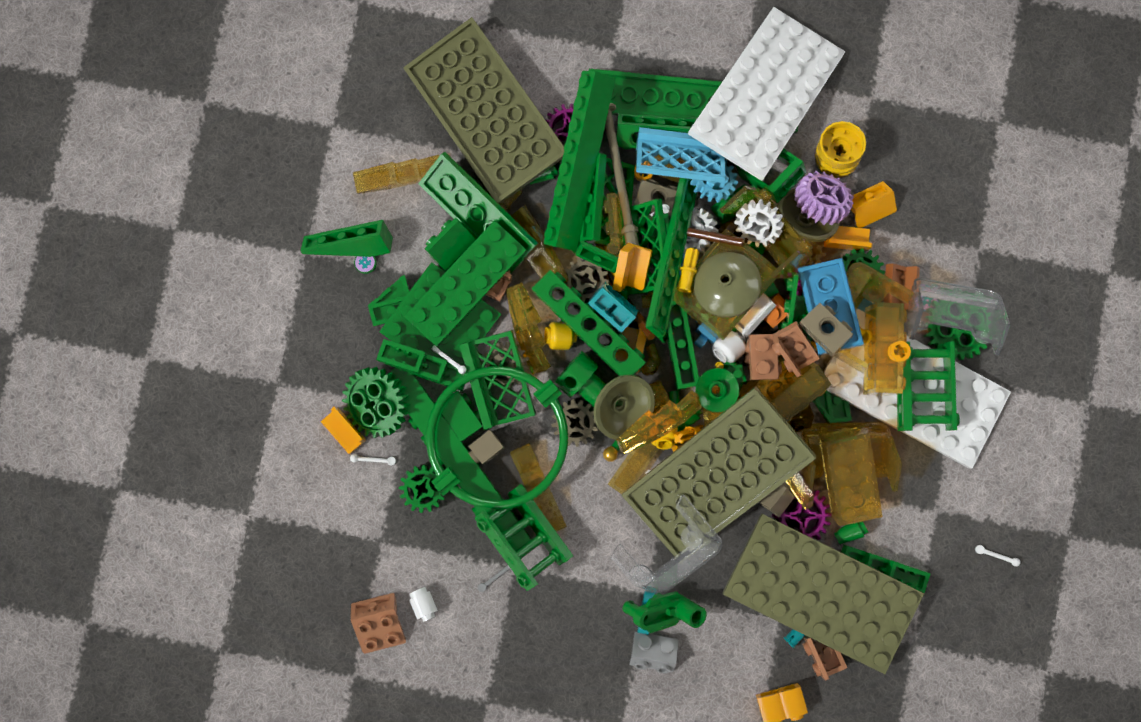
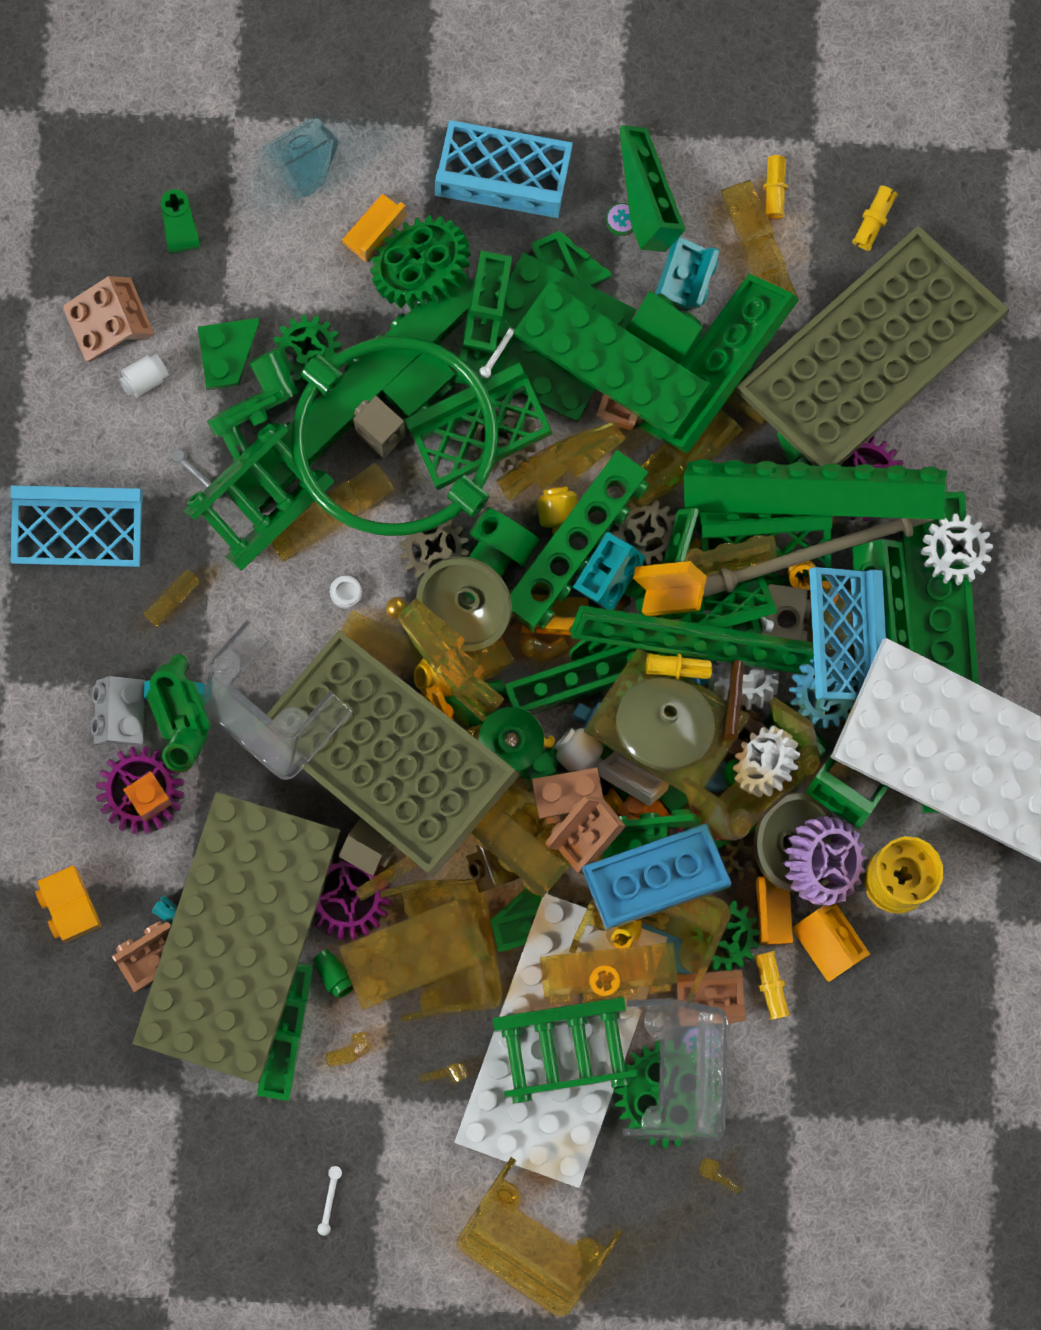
camera: 80 degrees right, 5 degrees down
(285, 471) = (303, 156): none -> clear light blue slope
(322, 565) = (179, 226): none -> green piece
(332, 344) = (502, 193): none -> medium azure fence
(354, 458) = (340, 300): white hinge -> none
(359, 156) = (775, 186): none -> yellow axle
(392, 95) = (875, 217): none -> yellow pin
(412, 224) = (688, 274): none -> teal bracket
(414, 544) = (225, 351): none -> green wing
(449, 513) = (277, 387): none -> green piece
(501, 664) = (81, 498): none -> medium azure fence
(581, 606) = (171, 598): none -> clear yellow axle
(594, 486) = (345, 592): none -> white tile
(625, 69) = (965, 558): none -> white gear
(634, 180) = (792, 574): none -> light orange bush
(703, 652) = (119, 771): none -> magenta gear
(722, 642) = (147, 796): none -> orange brick
(763, 329) = (613, 800): none -> light orange bush
(829, 342) = (624, 848): dark tan brick -> none
(895, 246) = (772, 985): none -> yellow pin
(906, 528) = (352, 1053): none -> clear yellow arm
(925, 460) = (456, 1072): none -> clear yellow hand
(1011, 305) = (709, 1169): none -> clear yellow hand
(1051, 427) = (527, 1252): none -> clear yellow windscreen

